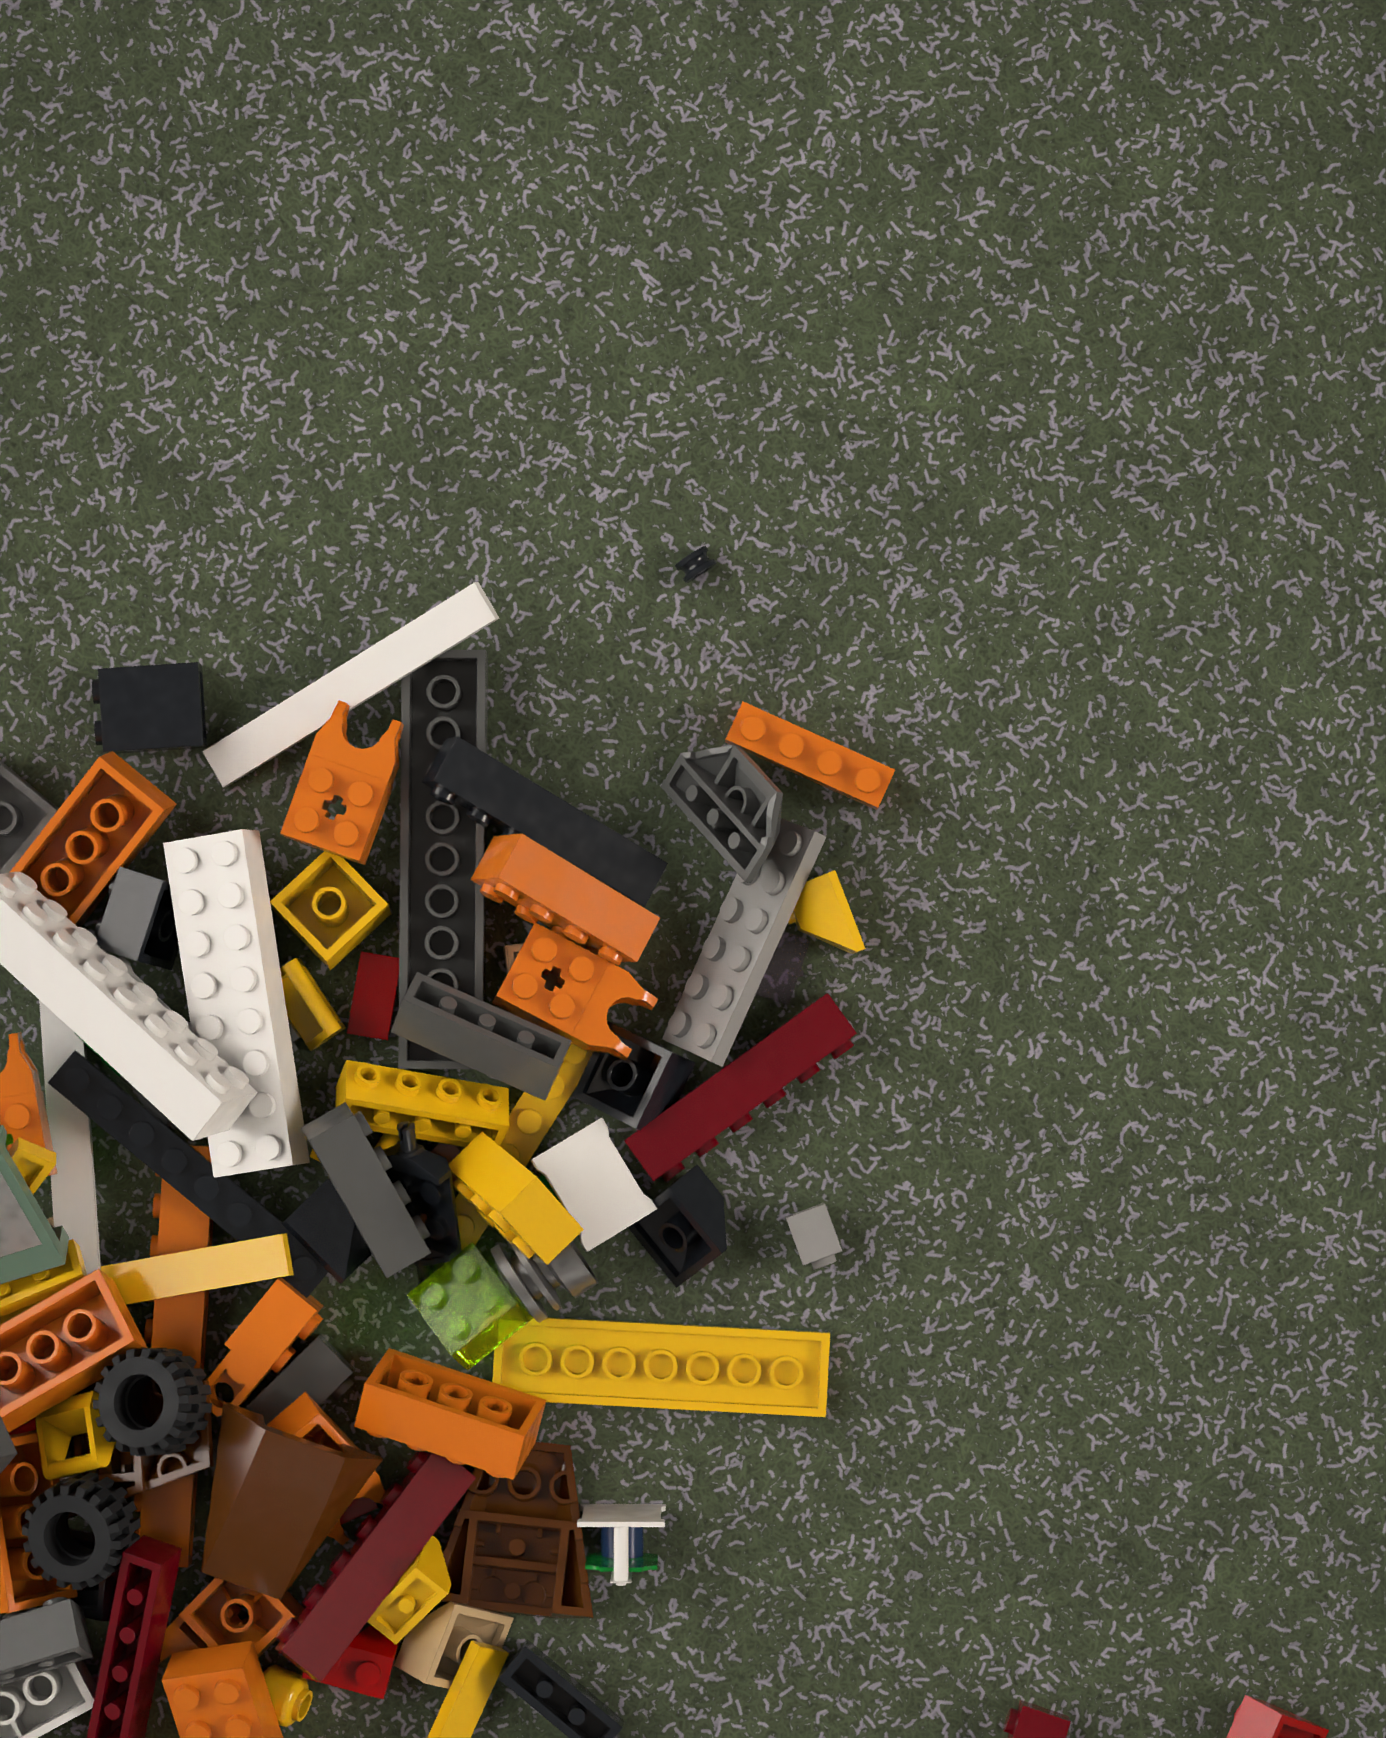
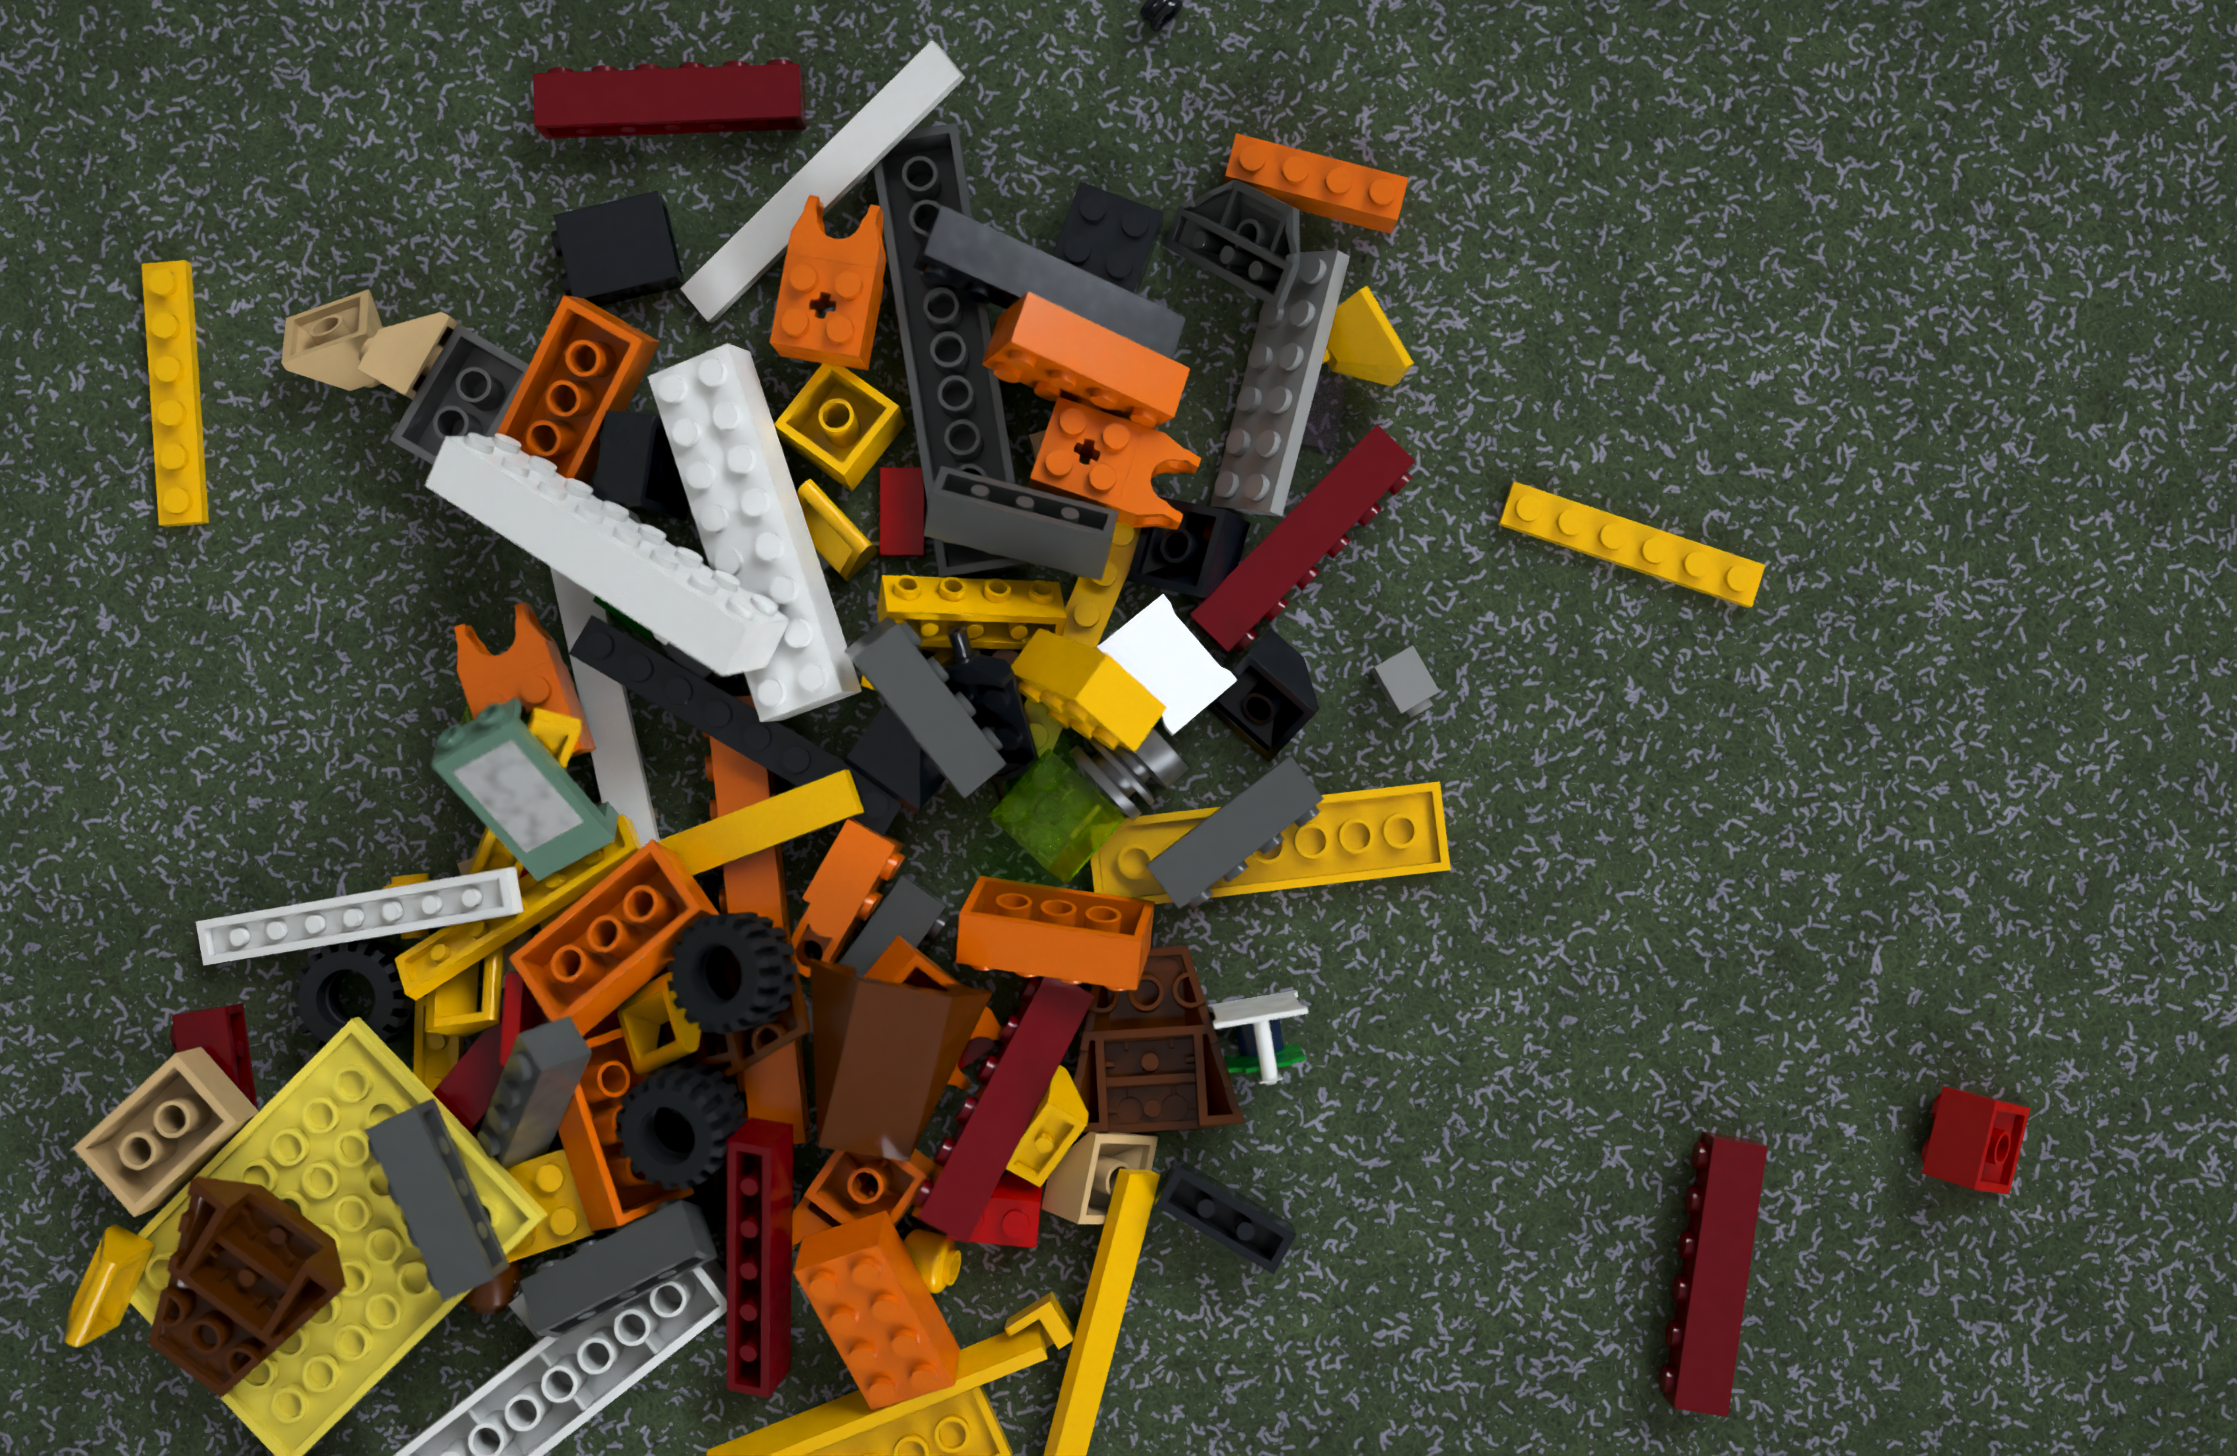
camera: 15 degrees left, 0 degrees up
(223, 574) = (669, 99): none -> dark red brick
(607, 778) = (1109, 236): none -> black brick
(630, 1349) = (1235, 832): none -> dark grey brick
(1049, 1141) = (1631, 544): none -> yellow plate

